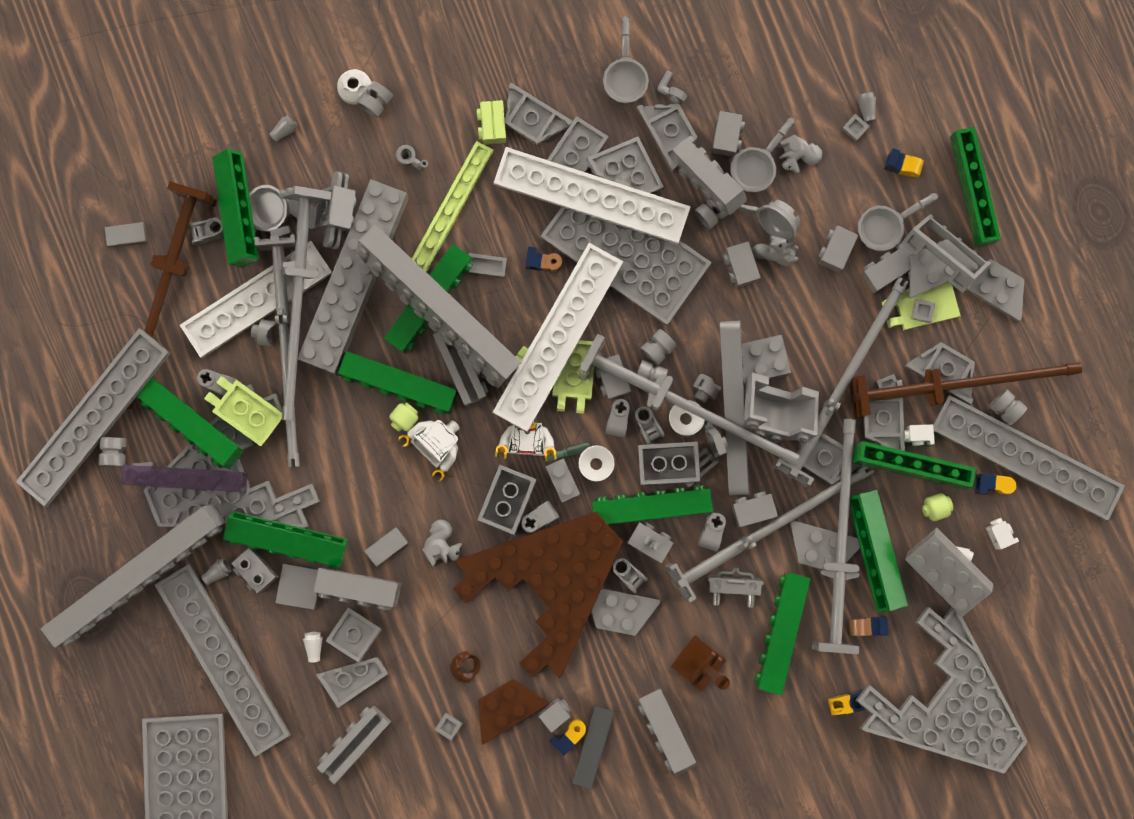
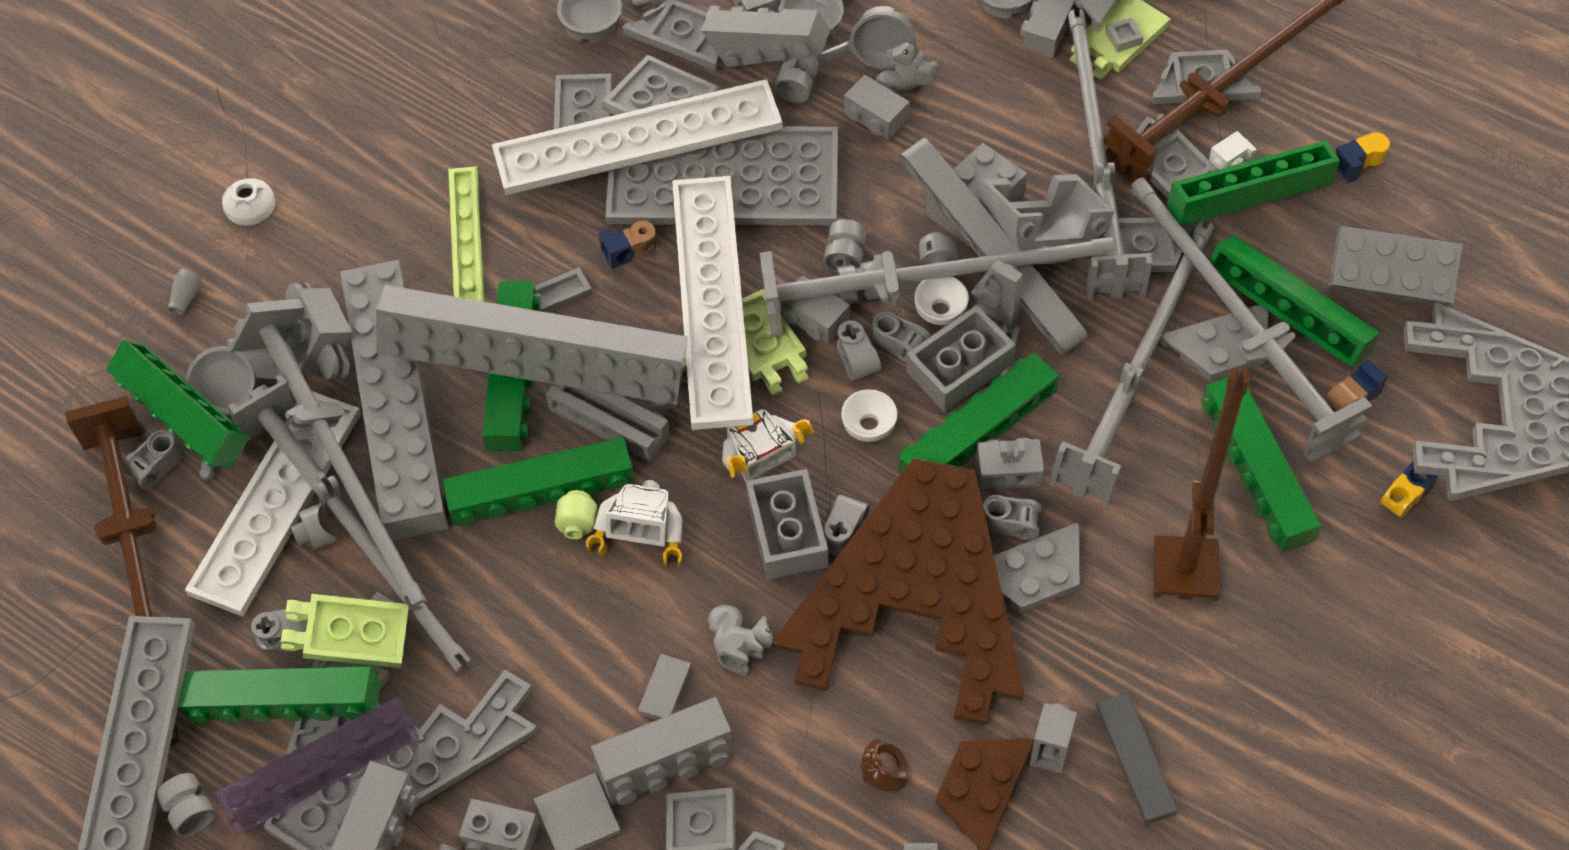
camera: 30 degrees left, 25 degrees down
(126, 234) = (37, 533): light grey tile -> none
(285, 539) = (513, 757): green brick -> none
(375, 99) = (286, 194): light grey wheel -> none
(411, 157) = (375, 232): light grey plate -> none
(492, 122) = (455, 138): yellowish green brick -> none
(533, 117) = (502, 107): light grey wing -> none
(562, 480) = (841, 461): light grey brick -> none
(570, 737) = (1096, 754): leg -> none
(575, 450) = (829, 424): sand green piece -> none
(667, 732) = (1221, 668): light grey wedge -> none
(710, 535) = (1077, 403): light grey piece -> none
(734, 585) = (1156, 446): light grey piece -> none
(754, 510) = (1107, 347): light grey brick -> none
(837, 249) = (974, 33): light grey brick -> none
(937, 507) = (1319, 215): yellowish green head -> none
(1001, 534) = (1416, 199): white brick -> none
(1008, 407) = (1304, 70): light grey wheel -> none
(1027, 458) = (1373, 108): light grey plate -> none

